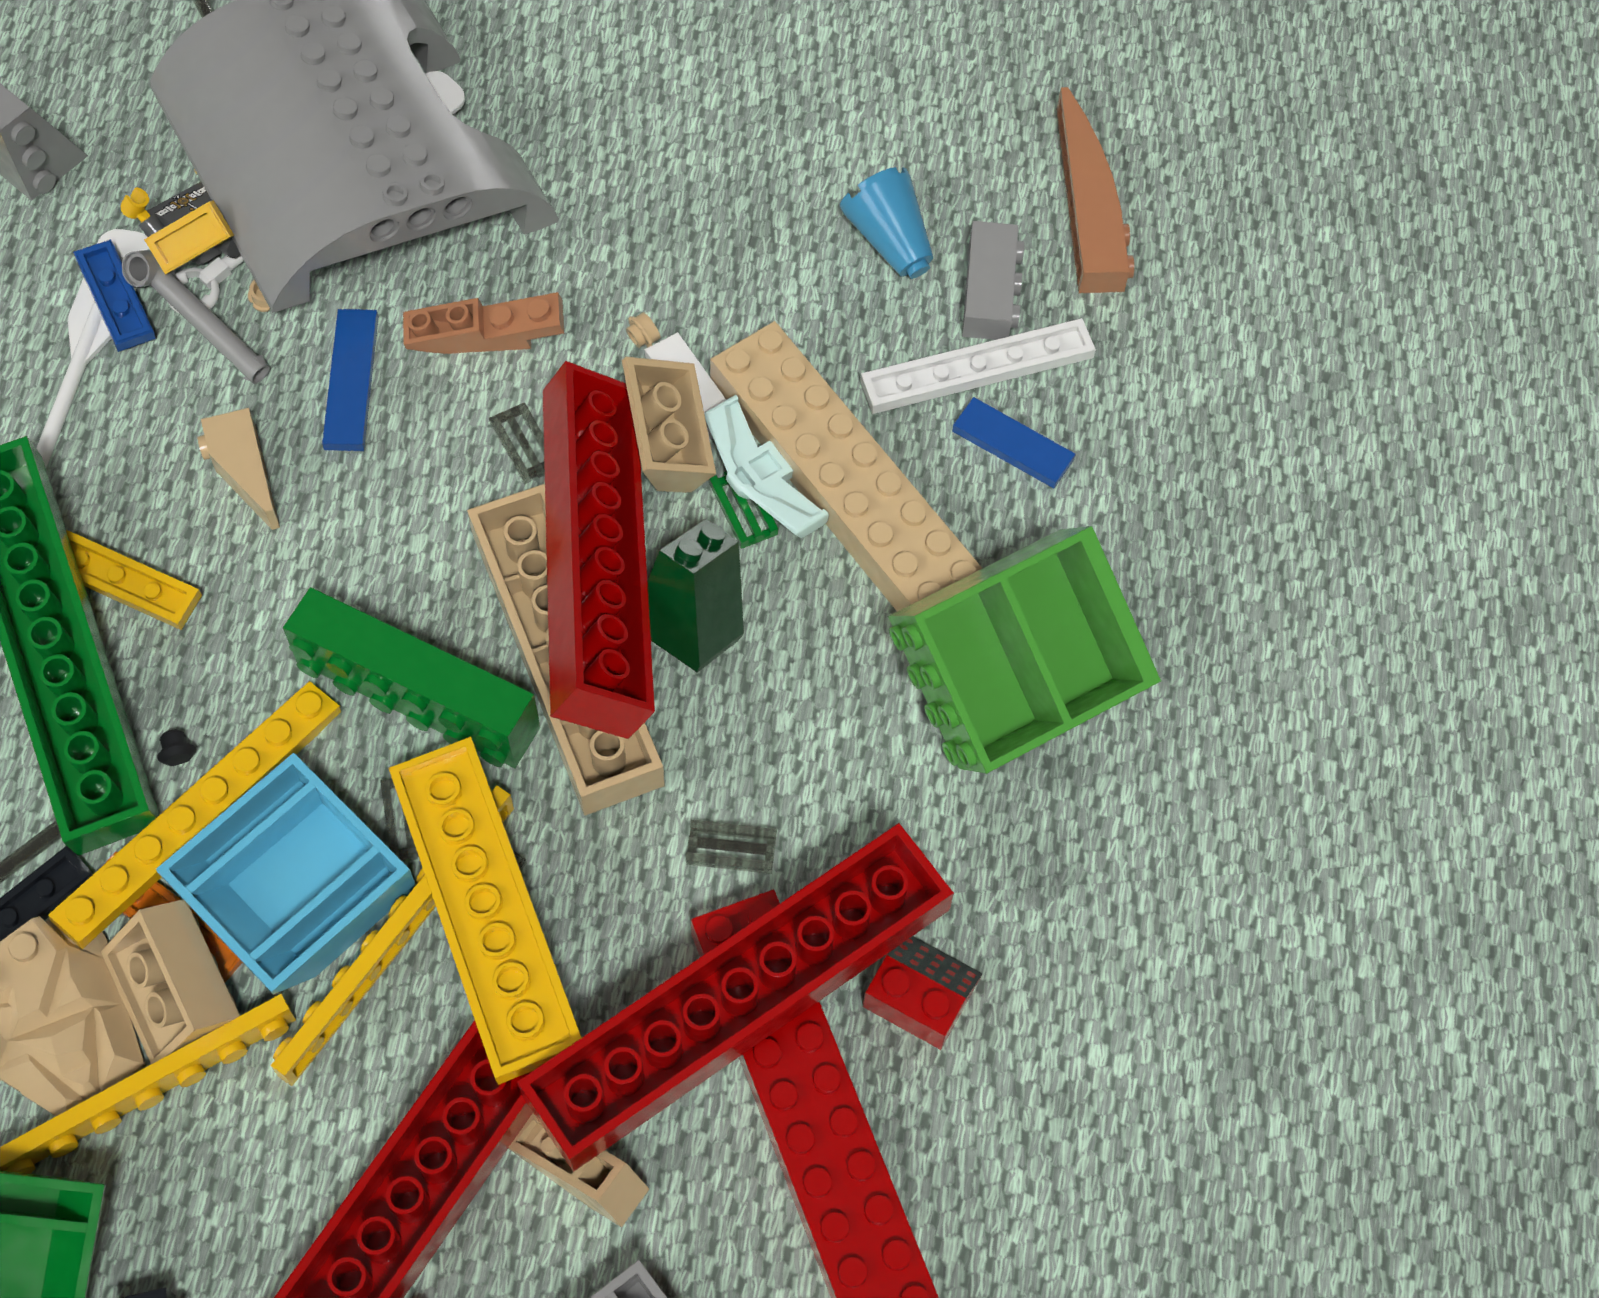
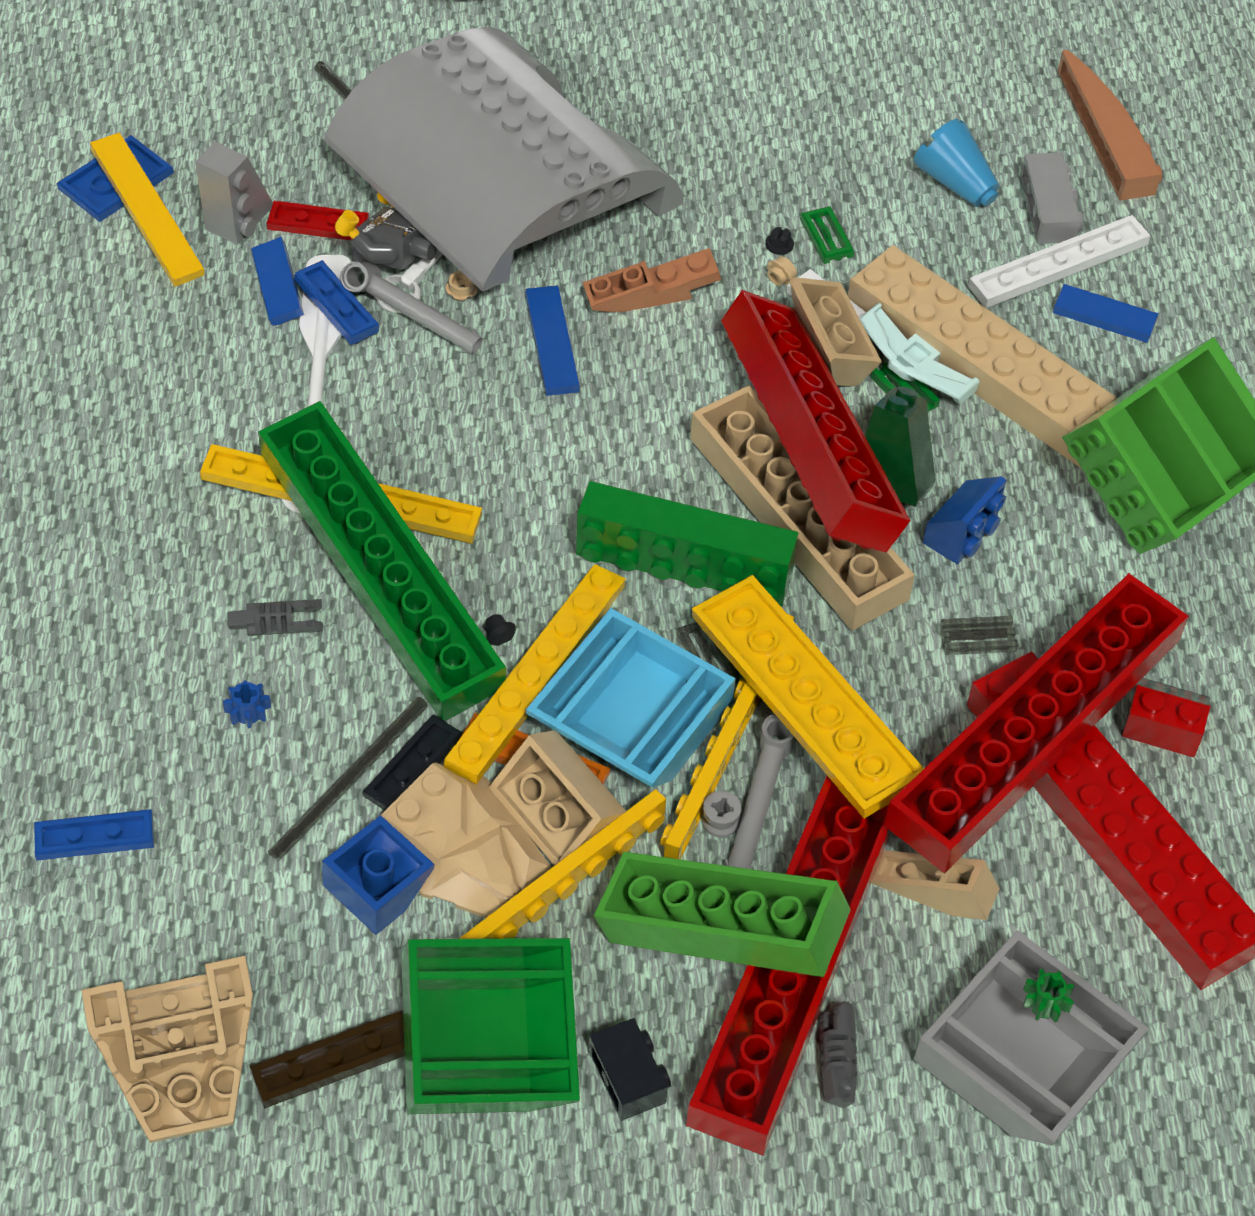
camera: 10 degrees left, 10 degrees down
(56, 262) = (277, 281): none -> blue tile
(118, 179) = (308, 219): none -> red tile
(189, 237) = (397, 243): yellow tile -> none
(238, 459) = (484, 411): tan slope -> none
(295, 1182) = (723, 913): none -> bright green brick
(363, 1039) = (724, 823): none -> light grey wheel
(401, 1027) = (761, 791): none -> light grey piece
(495, 421) = (718, 383): clear smoke tile -> none
(654, 290) = (780, 241): none -> black piece
(717, 314) = (834, 253): none -> green tile
(756, 696) = (966, 518): none -> blue slope

